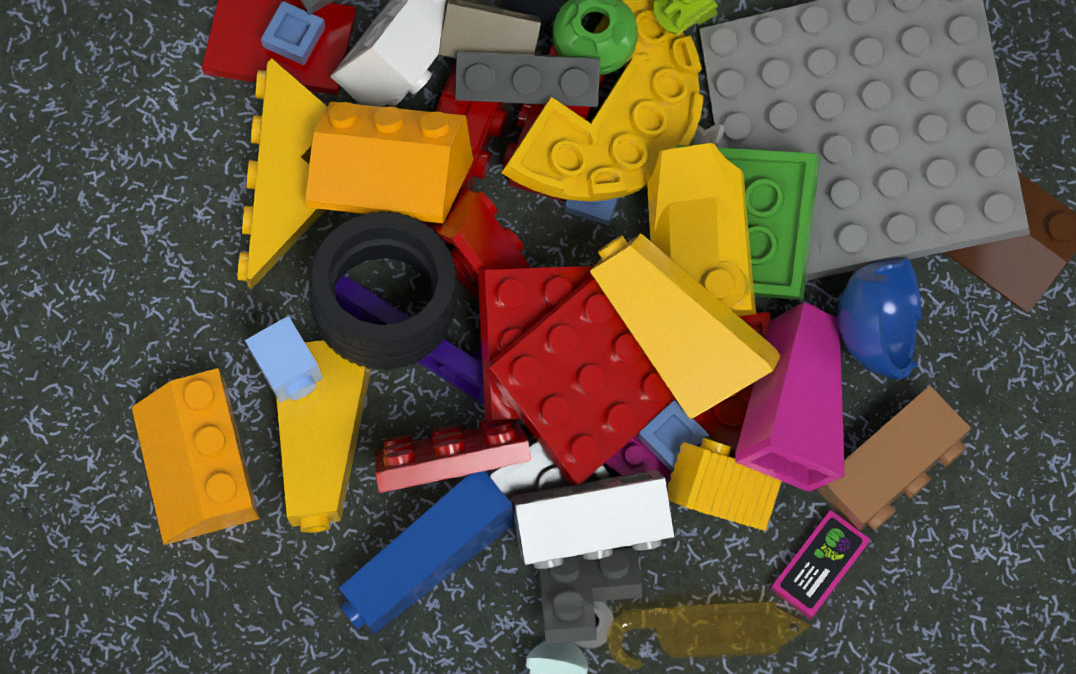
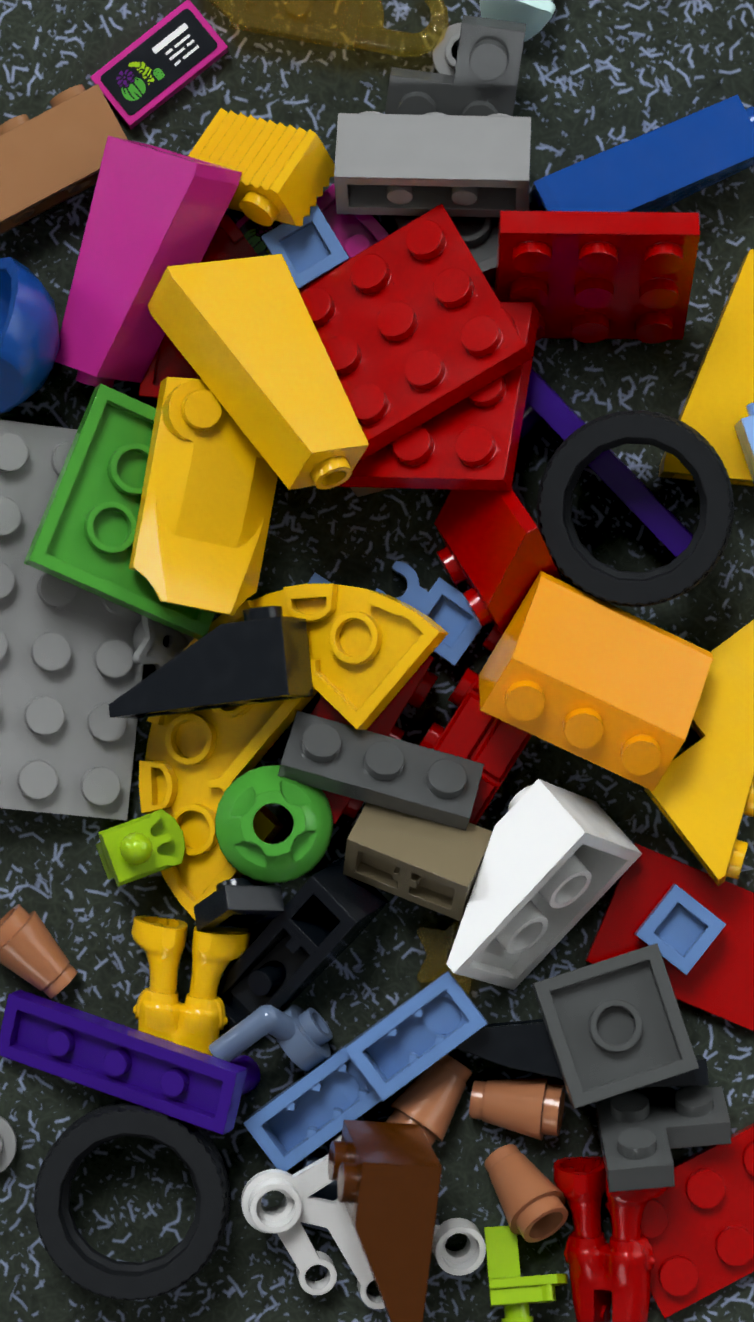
camera: 170 degrees left, 15 degrees up
(518, 211) = (445, 607): none -> medium blue plate
(642, 122) = (229, 667): none -> black slope

